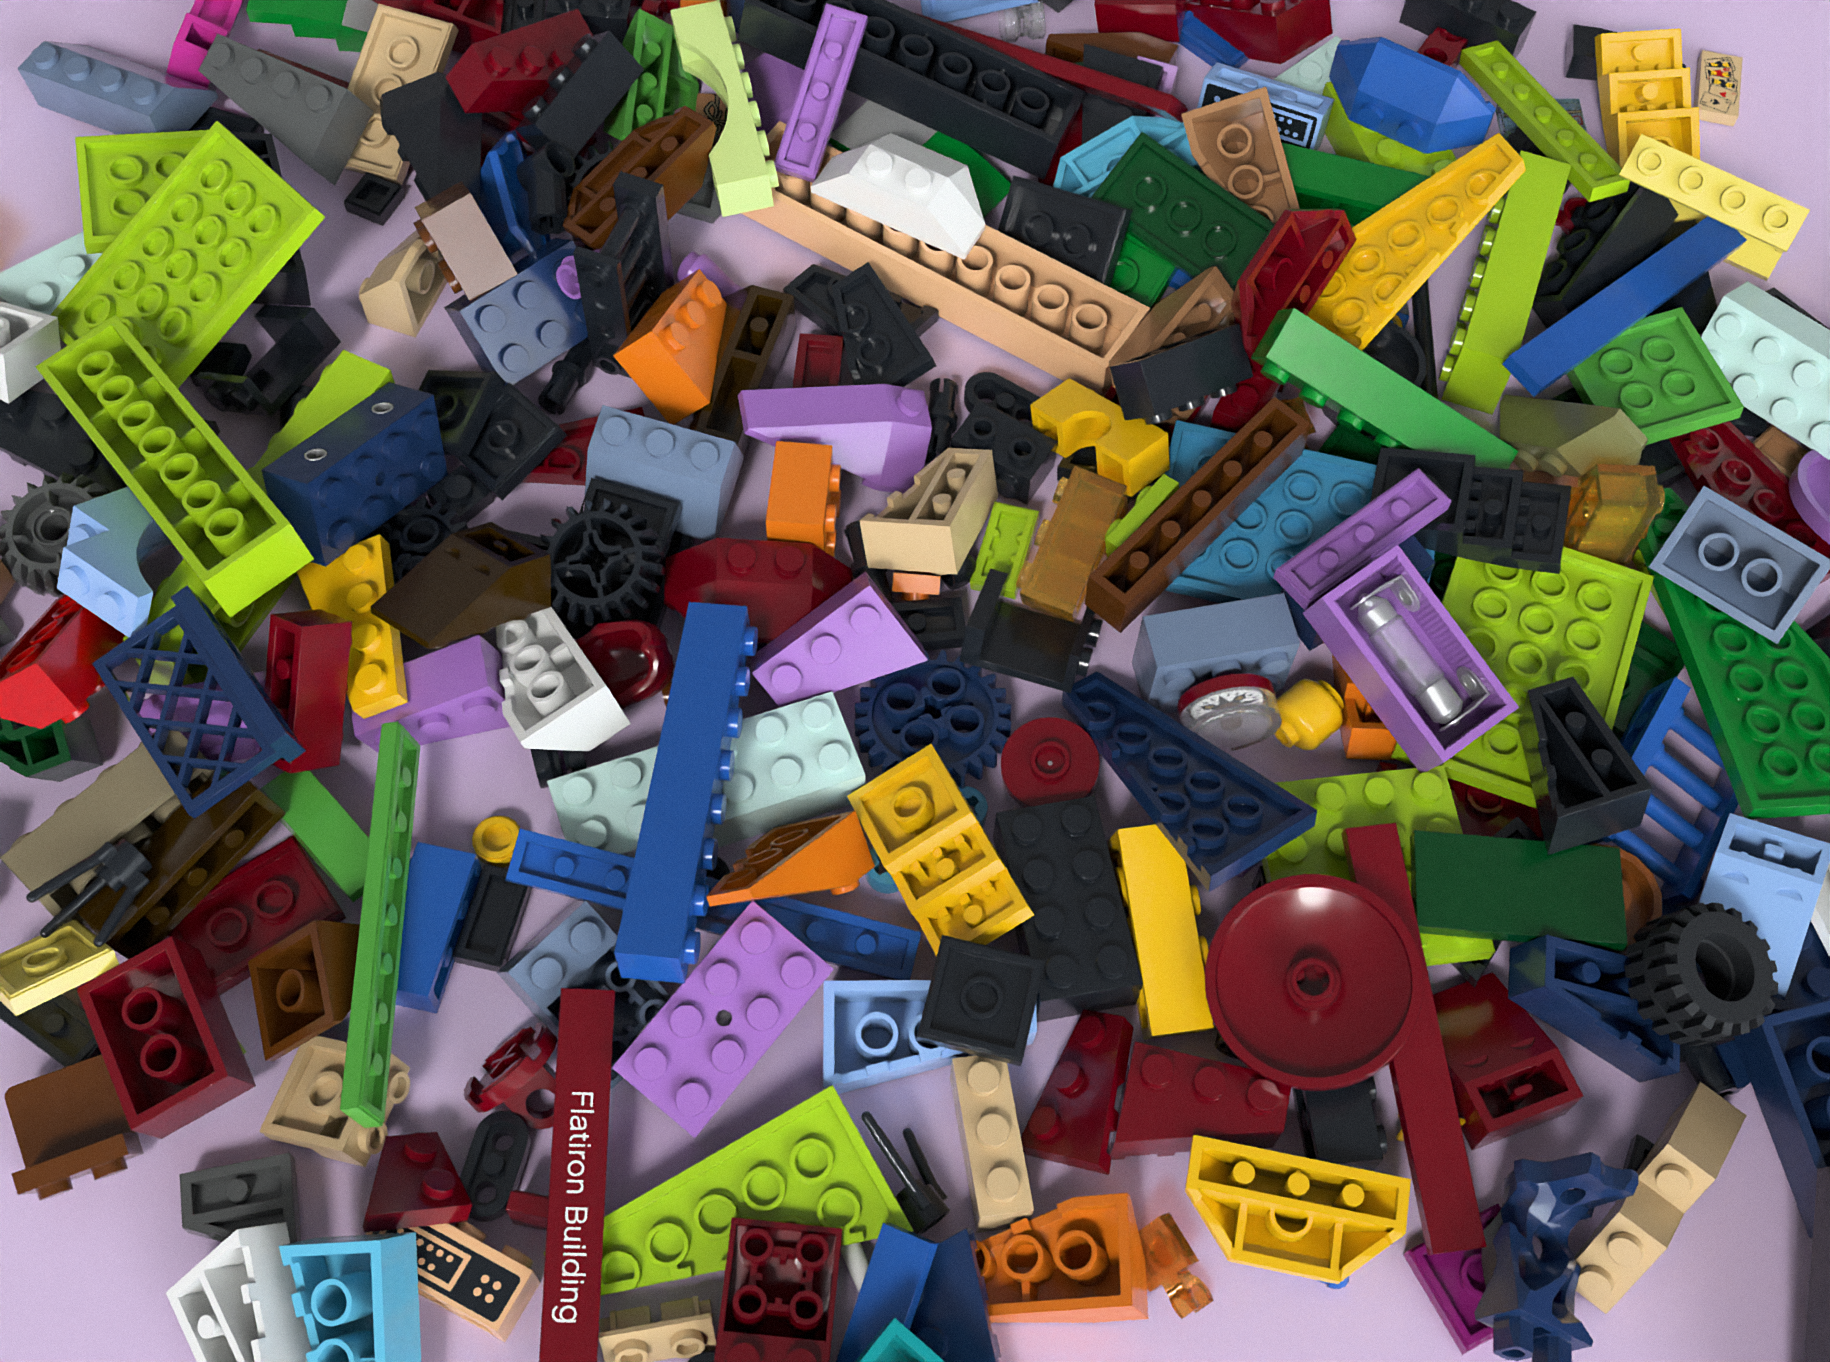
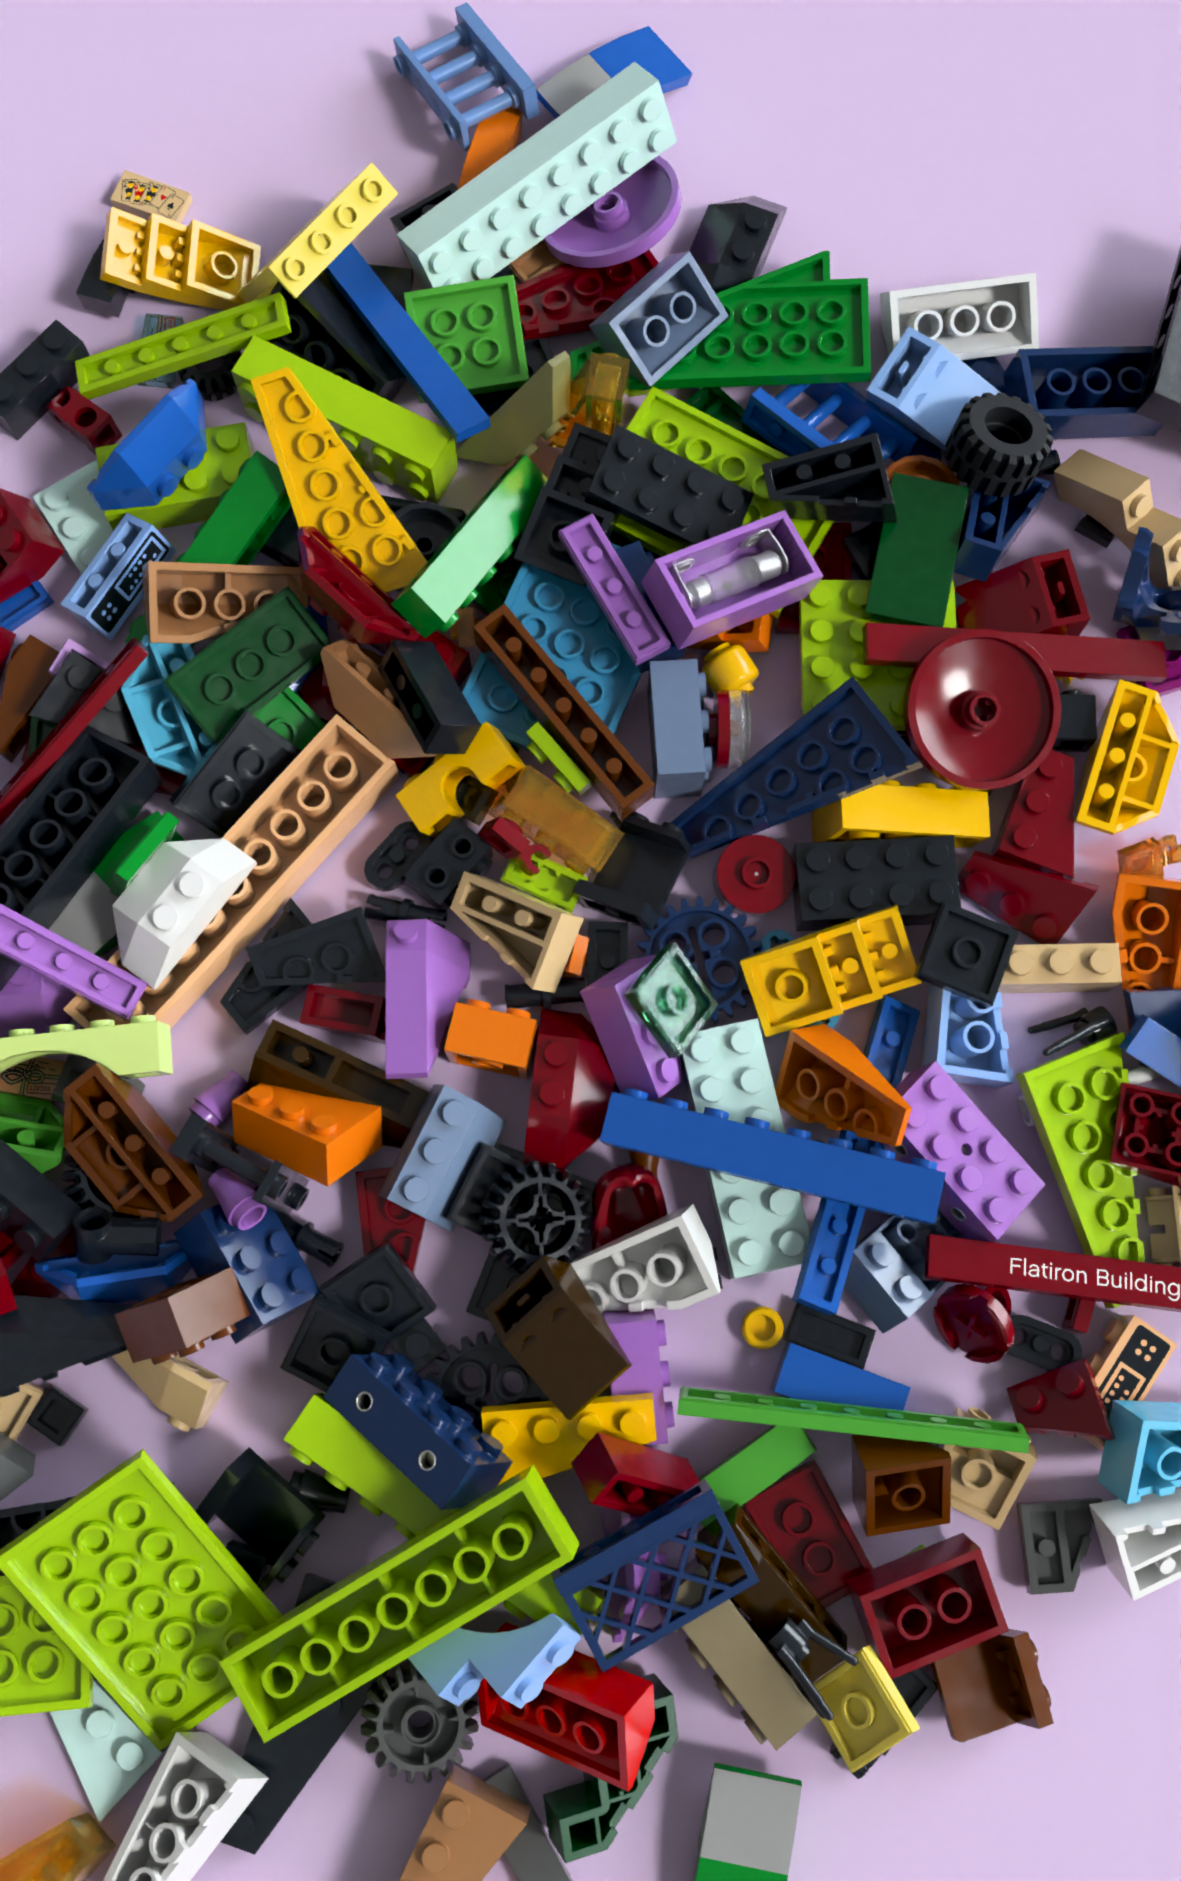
camera: 80 degrees left, 15 degrees up
(867, 664) = (671, 1000): none -> clear green tile
(957, 146) = (126, 872): none -> green tile
(1039, 486) = (508, 840): none -> dark red plate
(1512, 586) = (666, 490): none -> black plate

